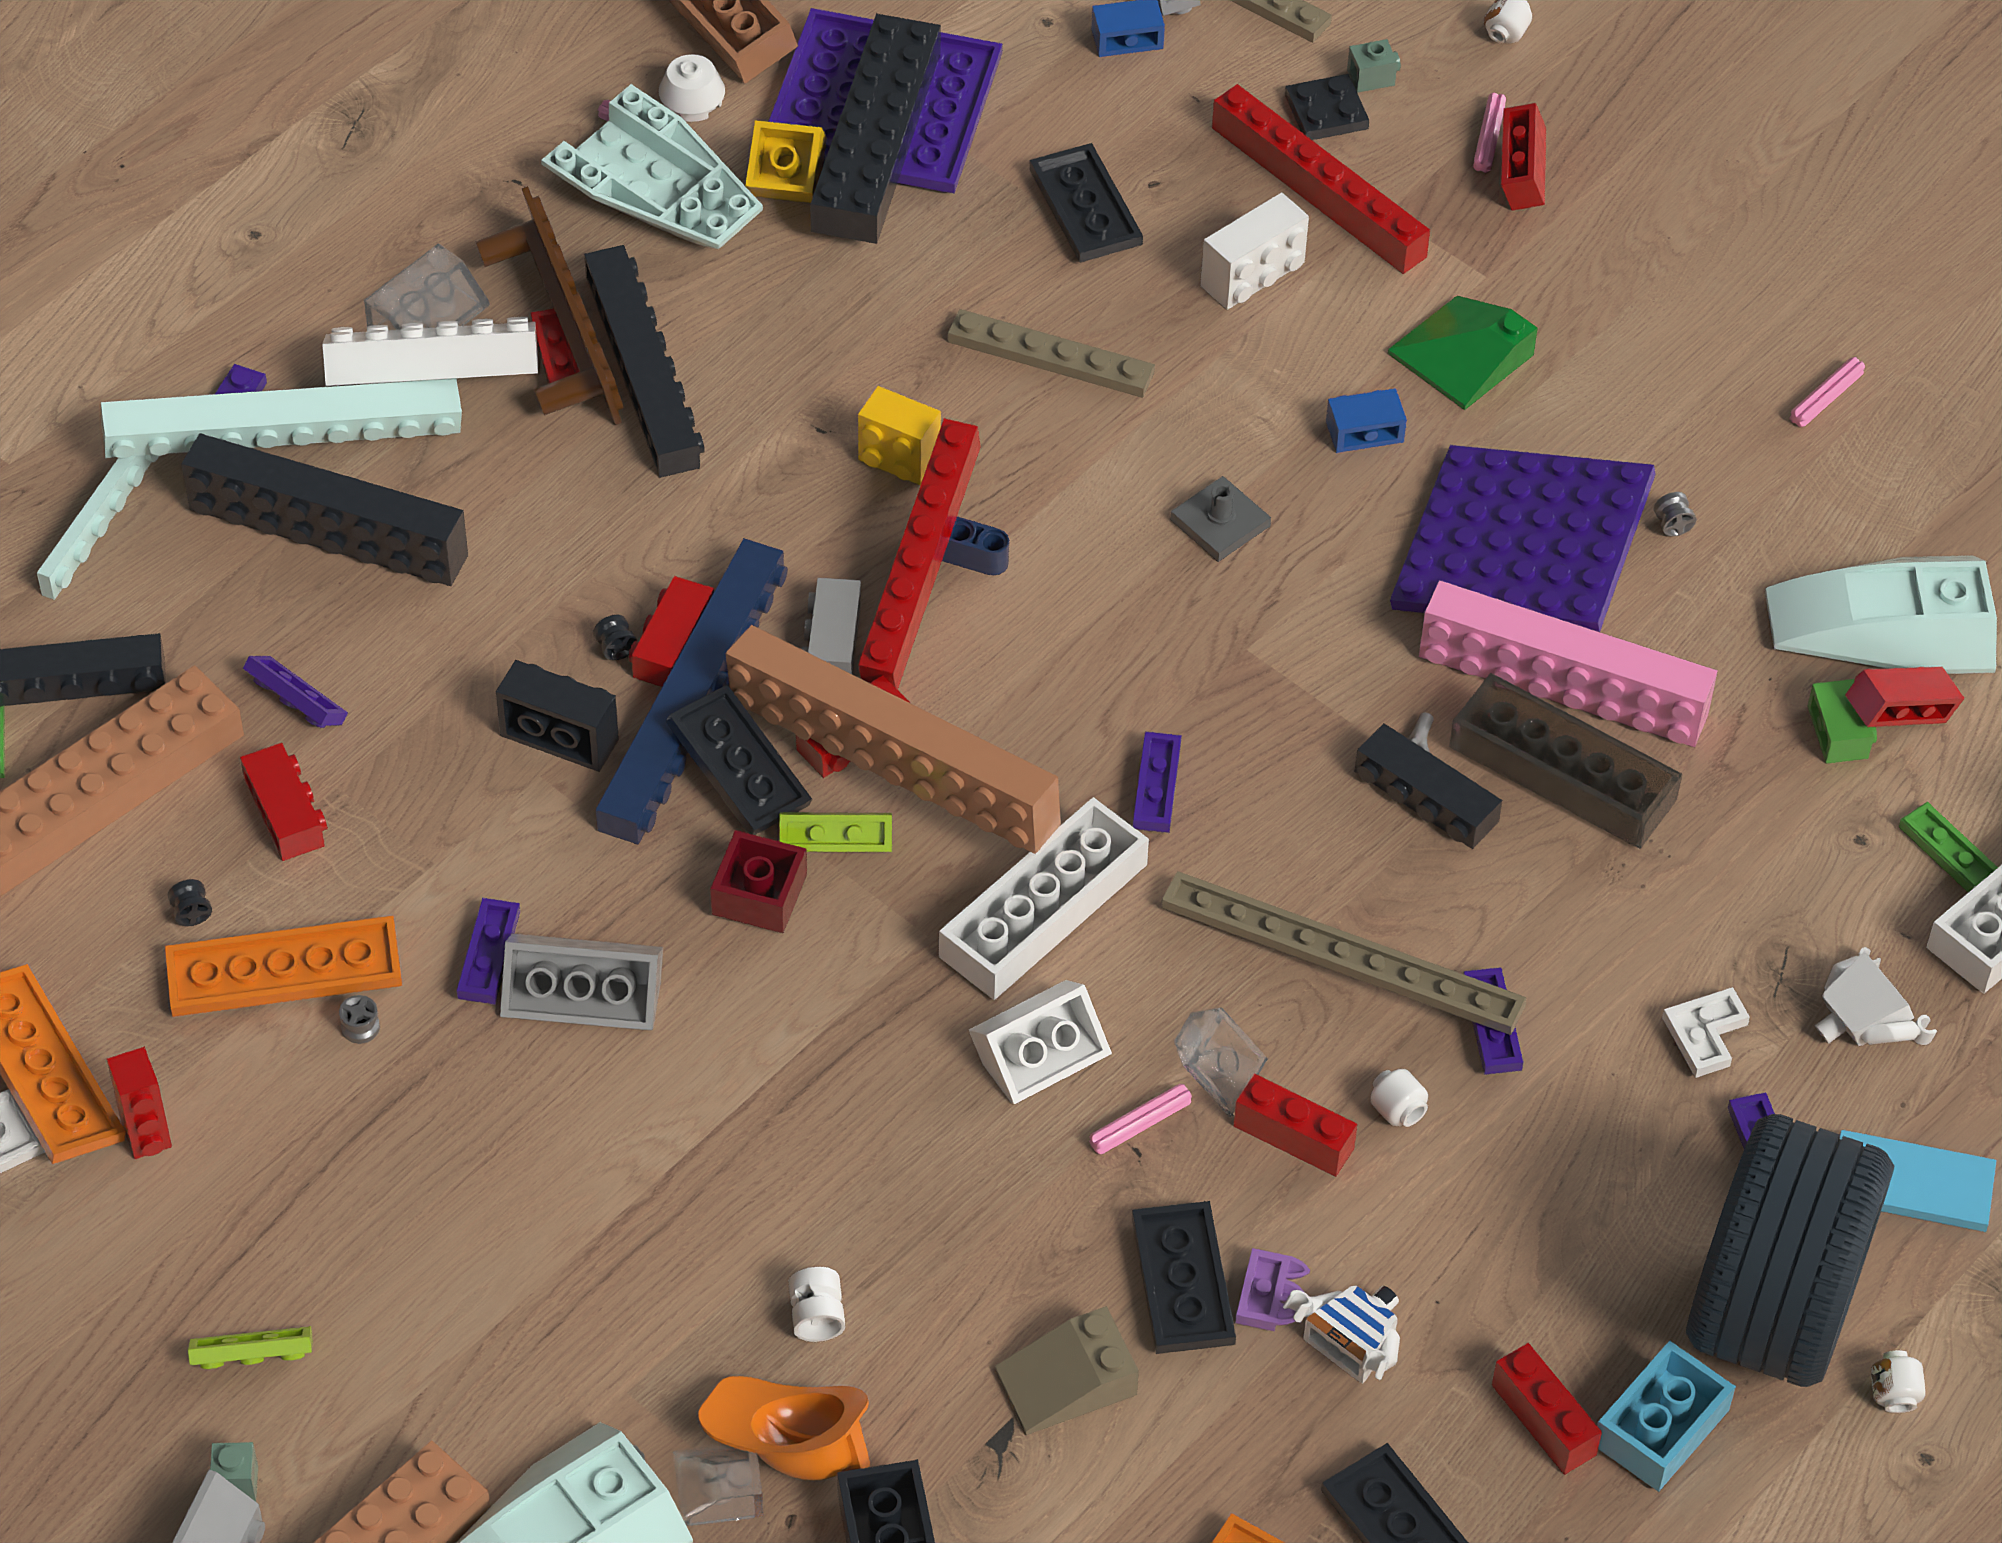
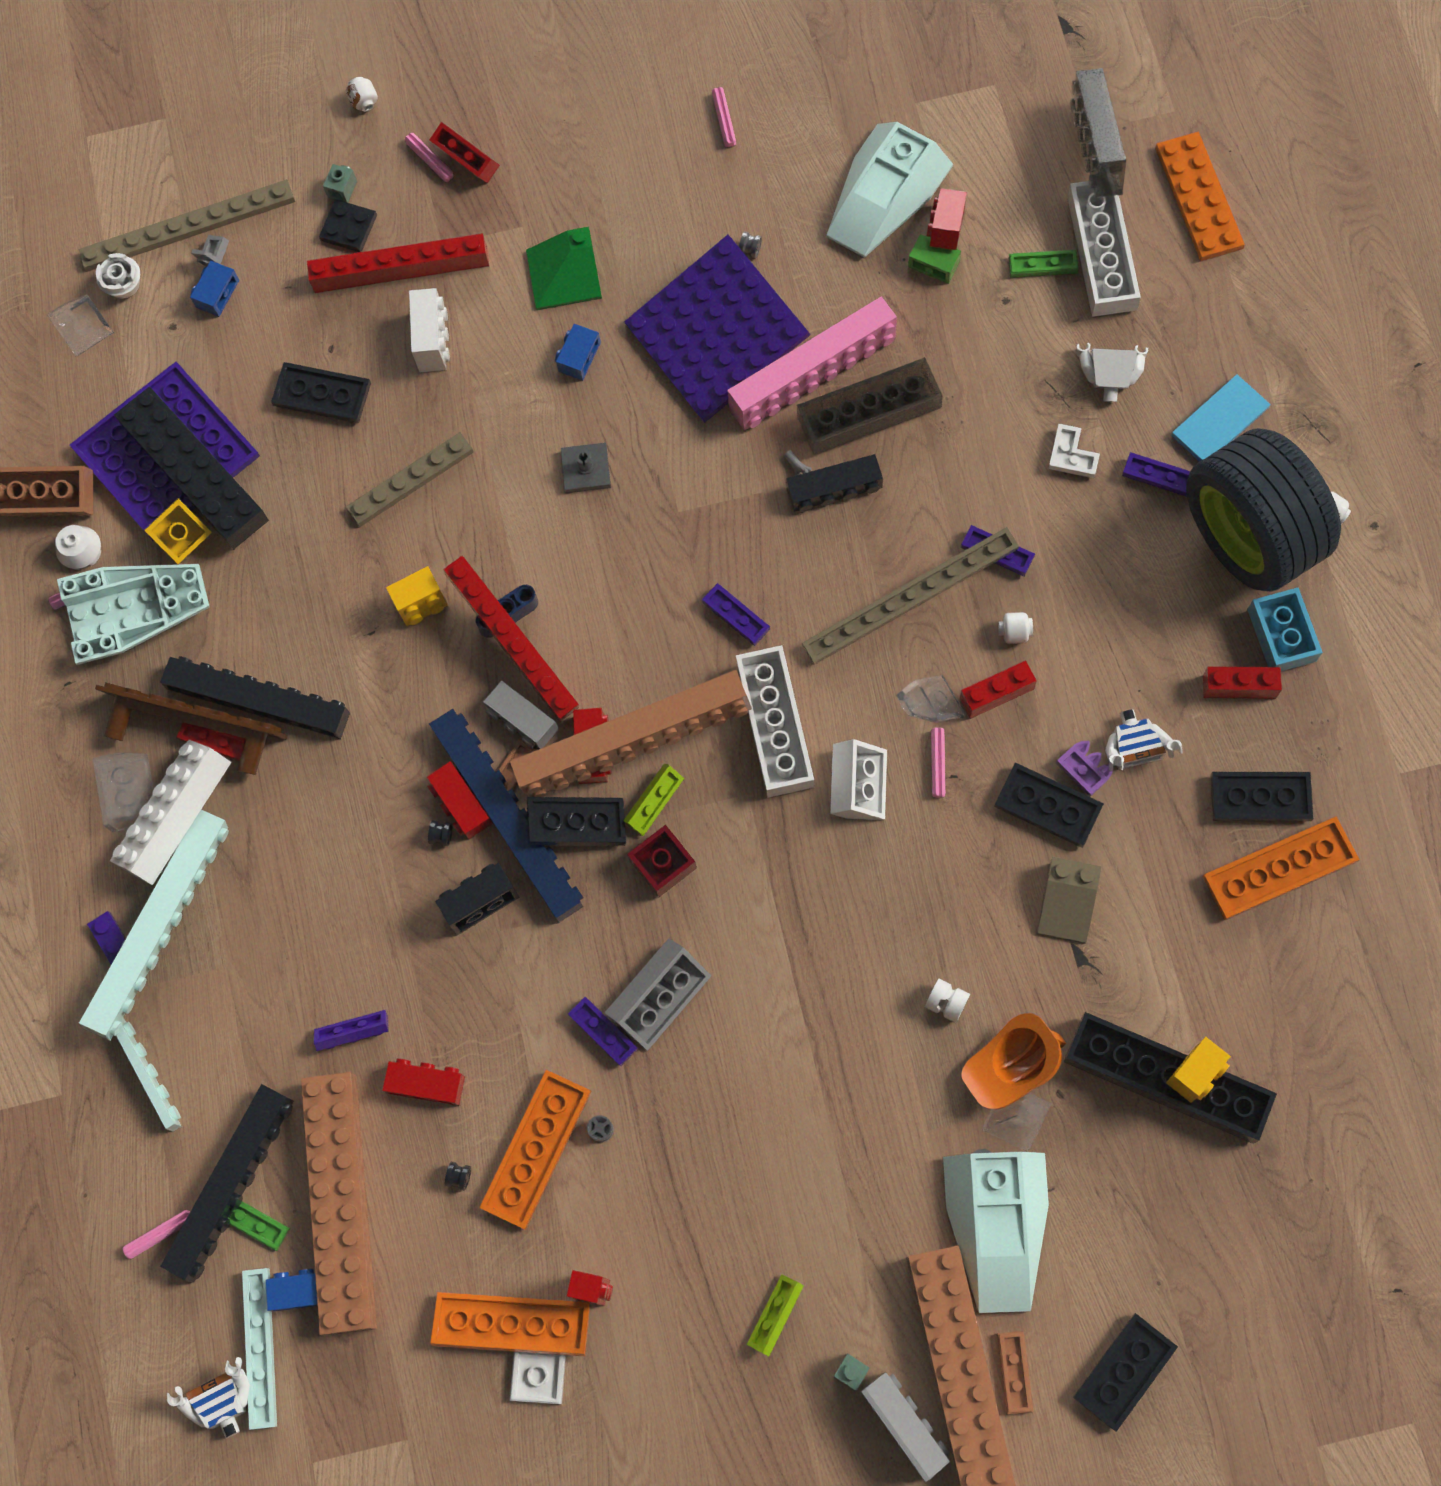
camera: 45 degrees left, 20 degrees up
(325, 509) = (238, 939): black brick -> none

